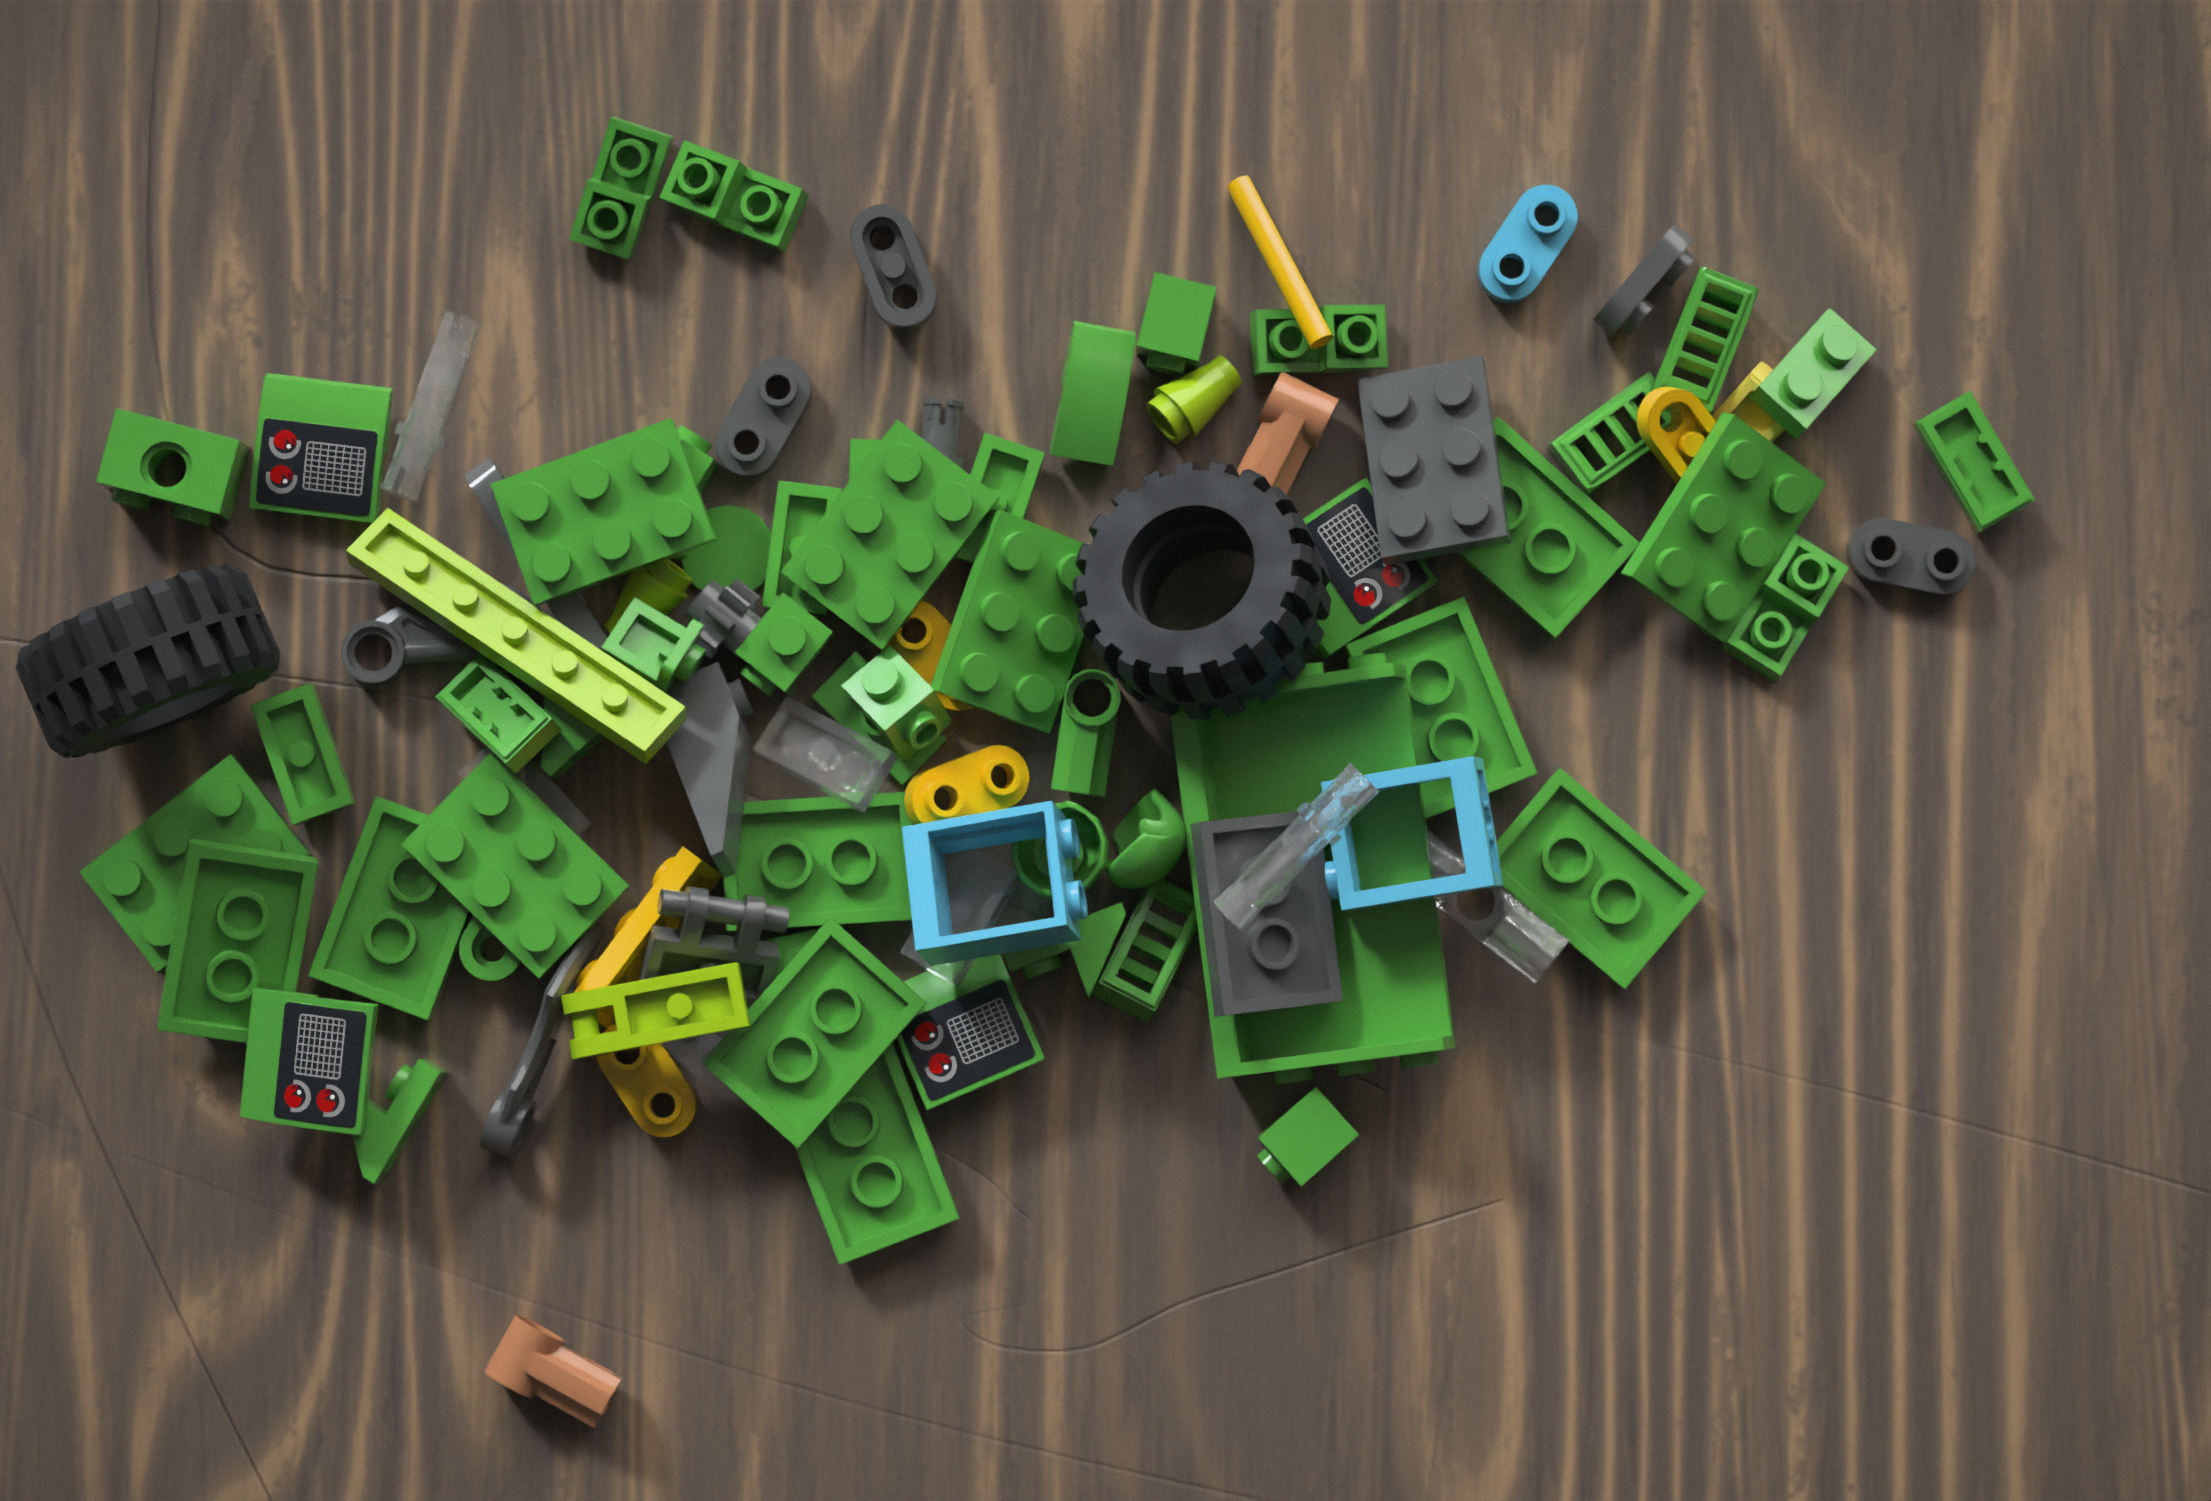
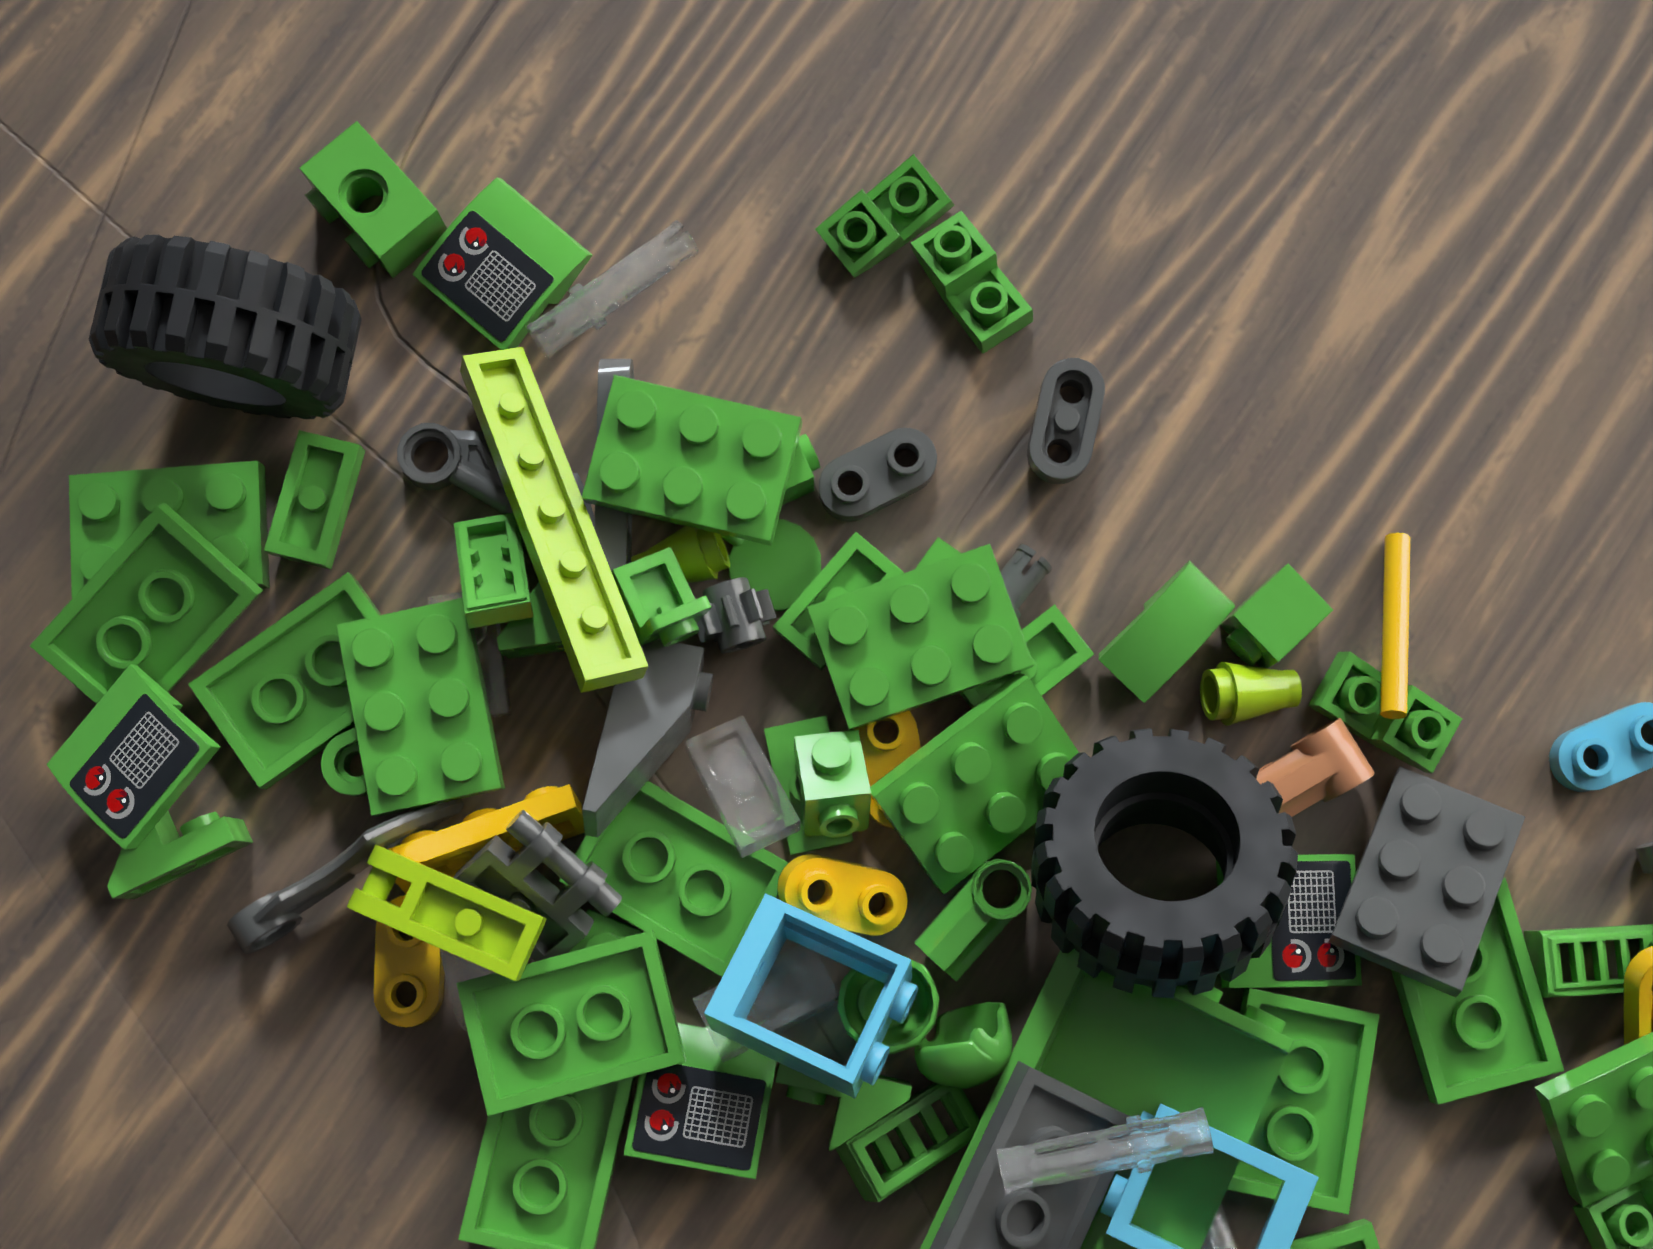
camera: 30 degrees right, 5 degrees down
(539, 1365) = (147, 1150): nougat piece -> none
(782, 646) = (767, 671): bright green bracket -> none

